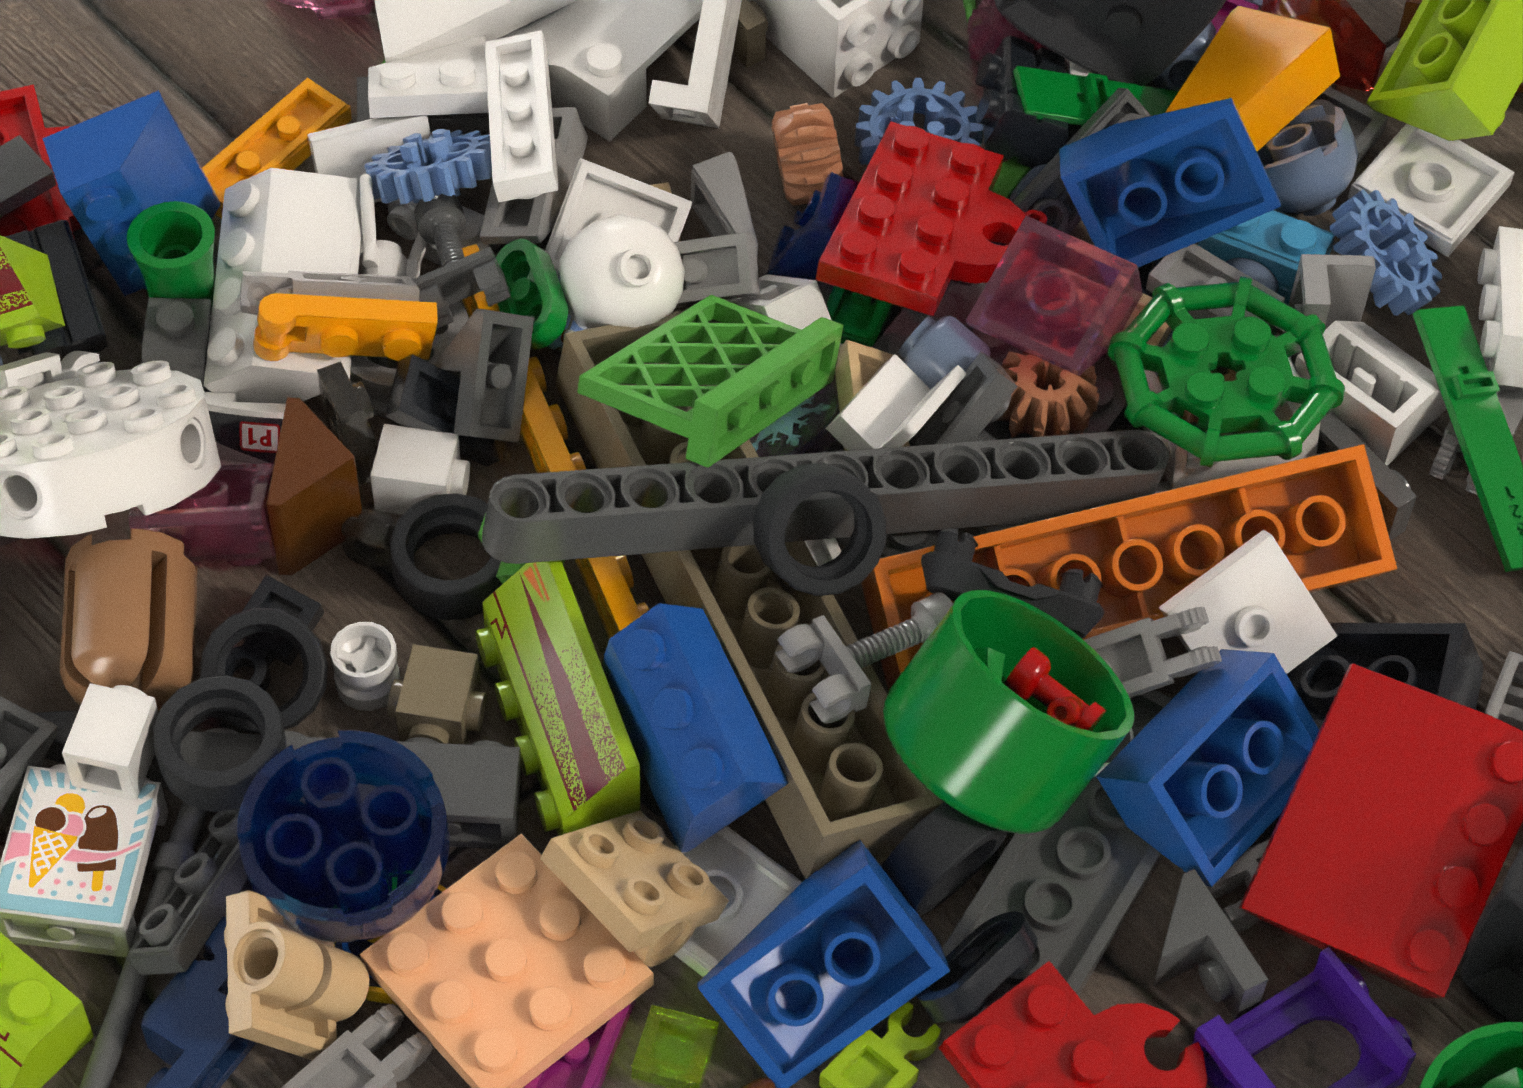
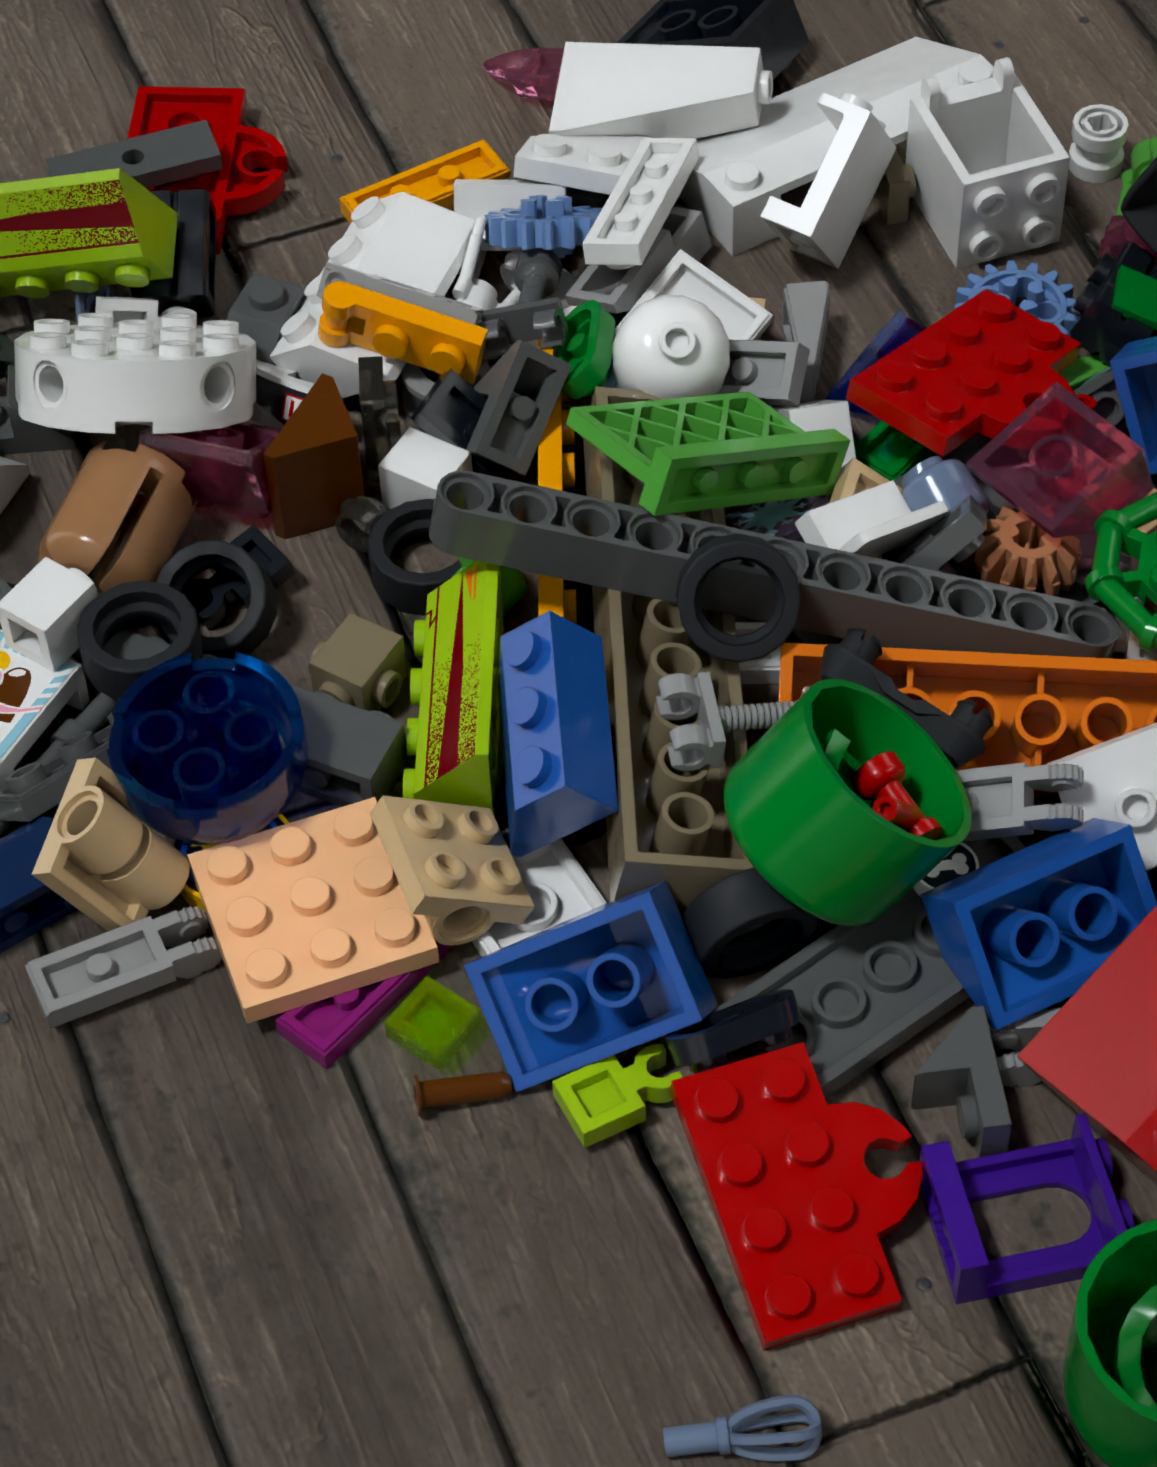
camera: 25 degrees right, 5 degrees down
(120, 167) = (275, 180): blue slope -> none
(174, 250) = (286, 236): green plant -> none
(355, 656) = (304, 617): white wheel -> none
(805, 150) = (895, 285): nougat gear -> none

